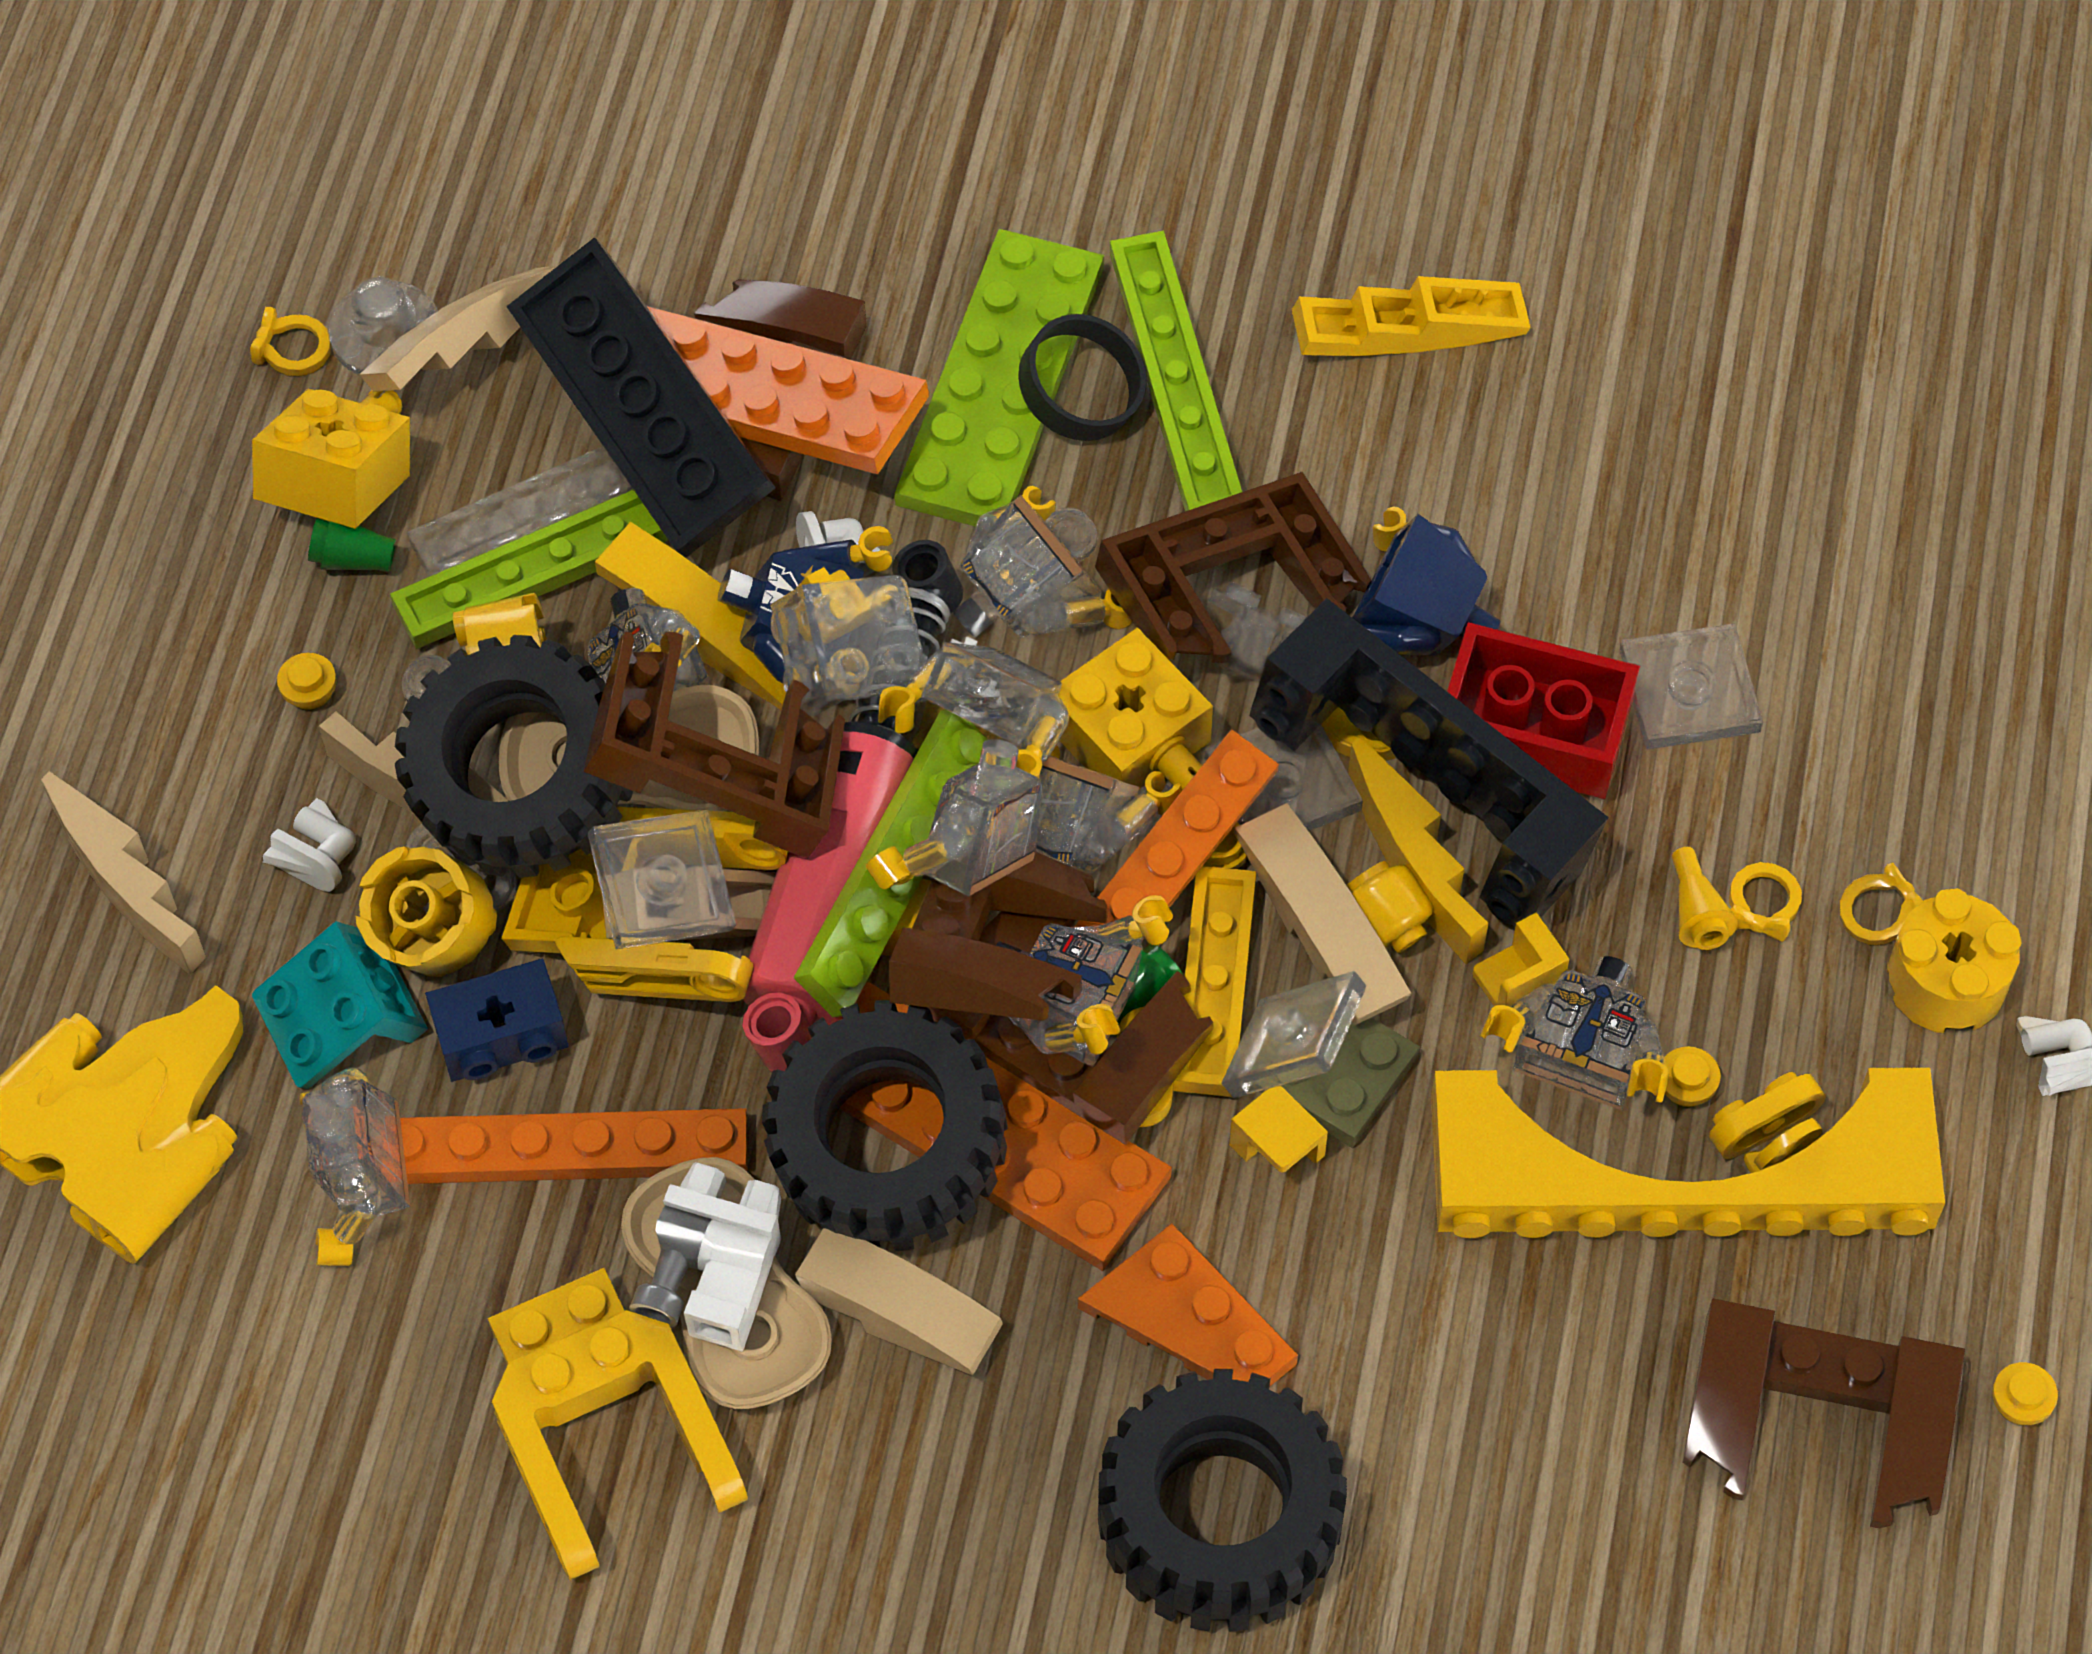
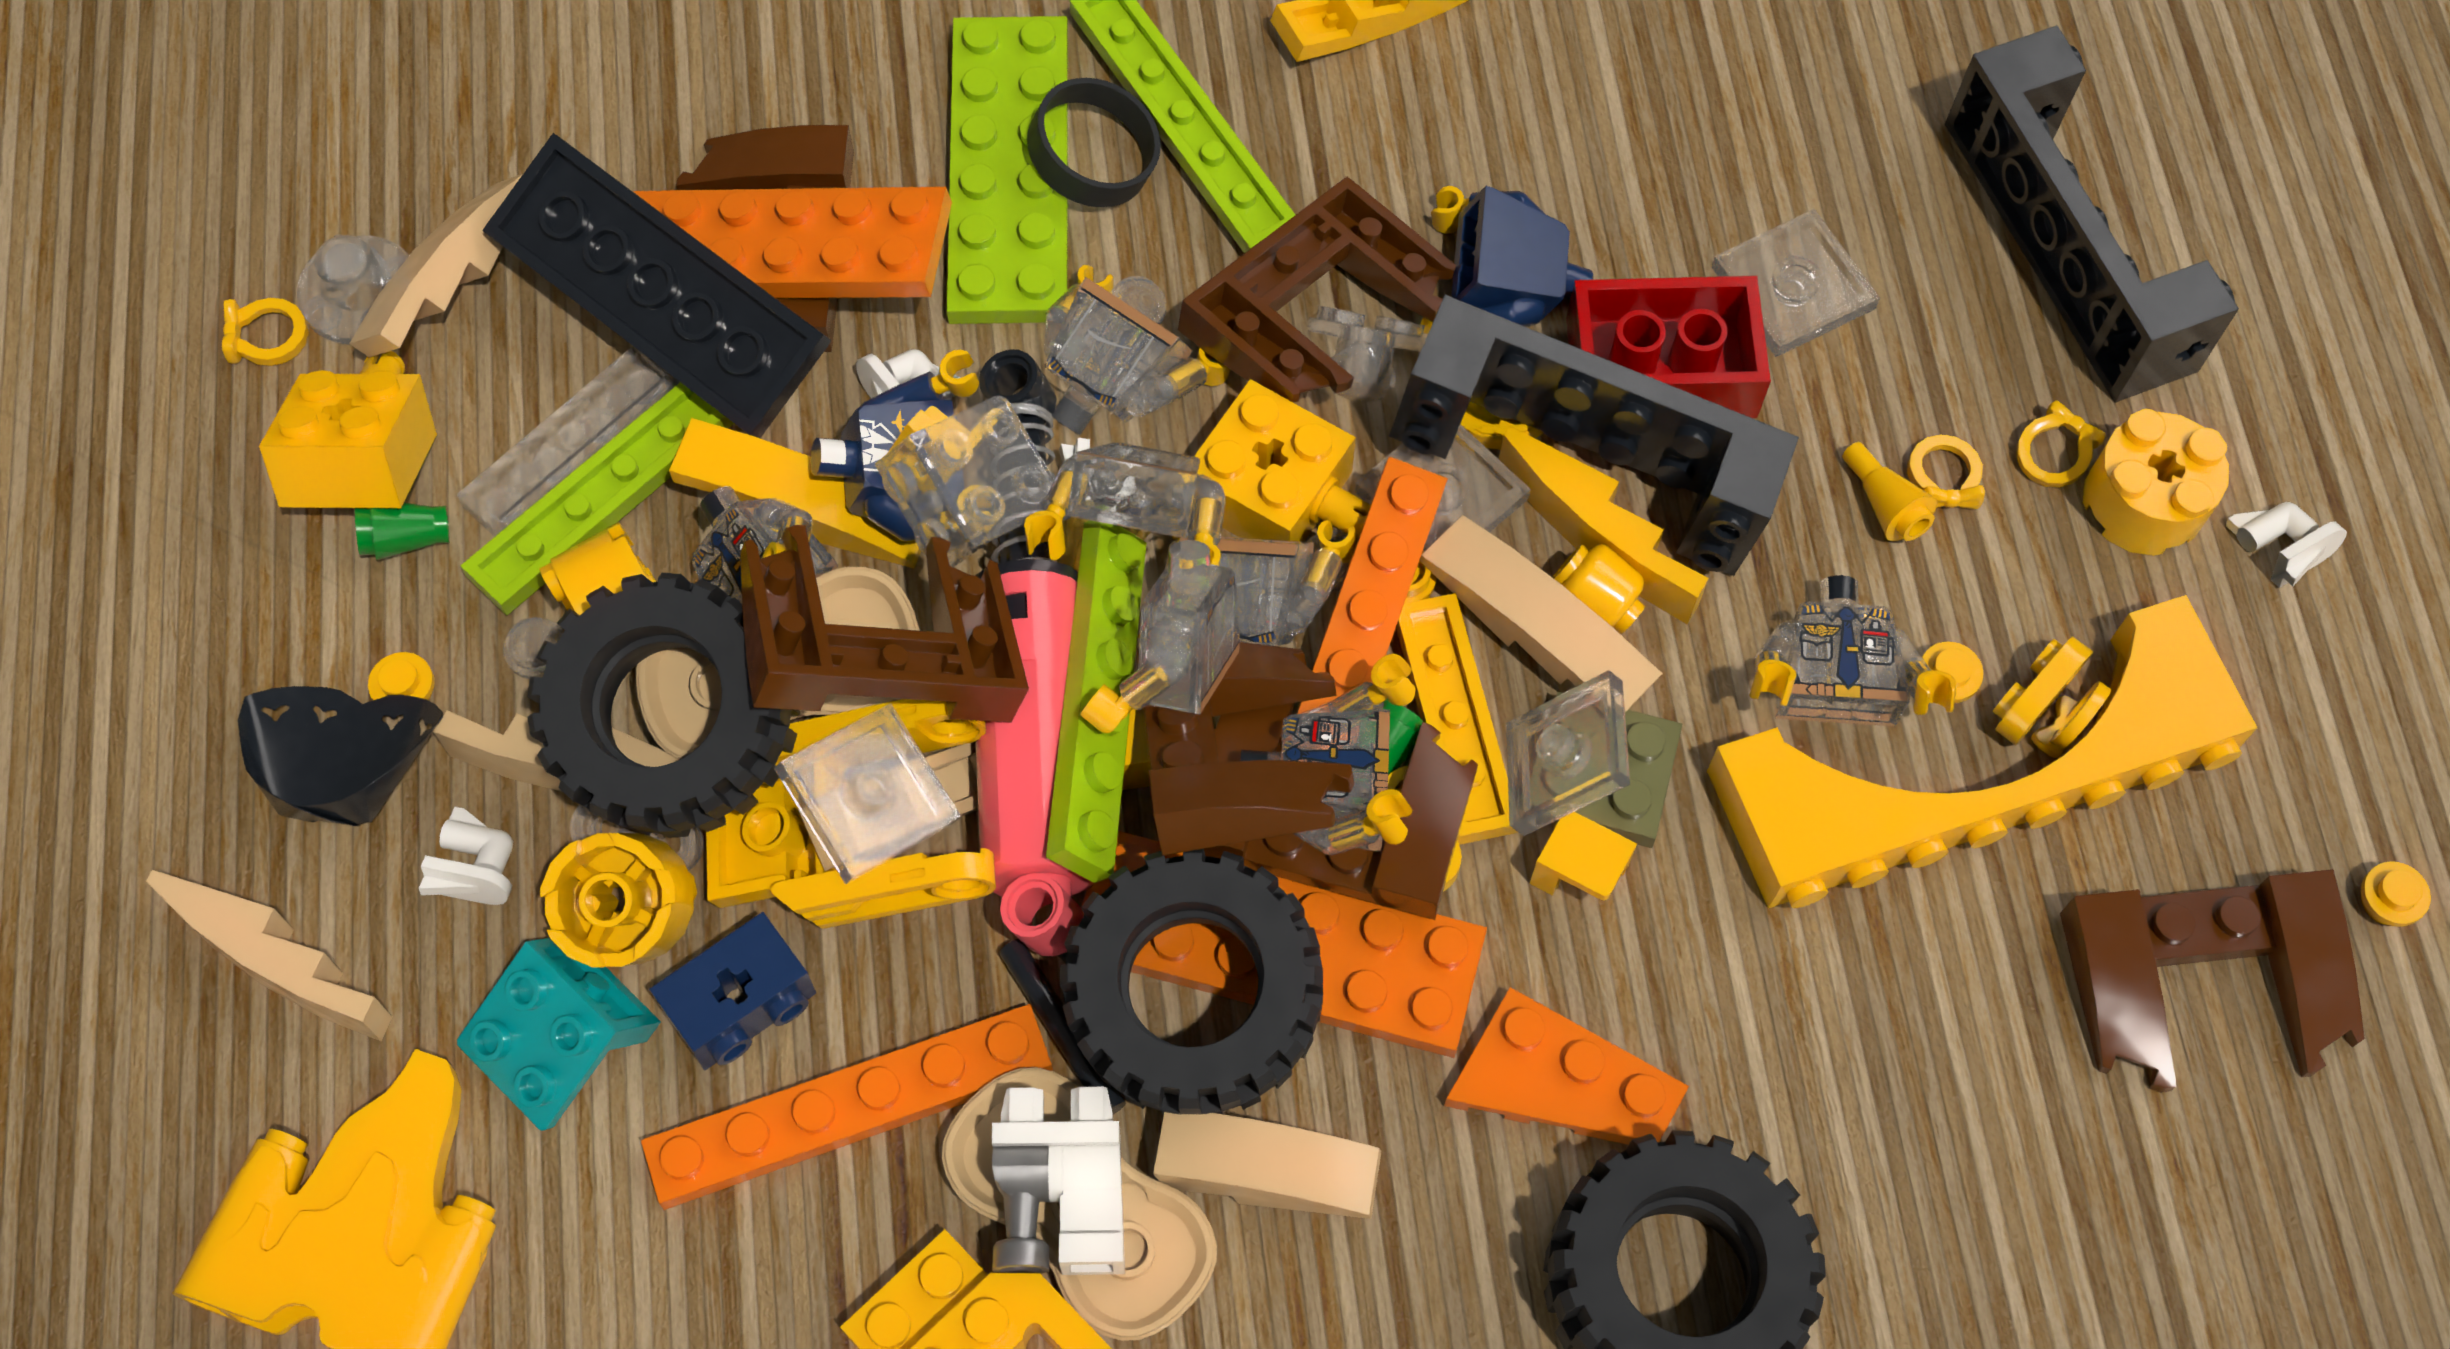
camera: 20 degrees left, 5 degrees up
(228, 734) = (335, 767): none -> black piece
(354, 1158) = (633, 1197): clear torso -> none
(756, 1095) = (1051, 1012): none -> black bar
(1524, 966) = (1749, 611): yellow panel -> none
(1997, 821) = (2127, 328): none -> black plate

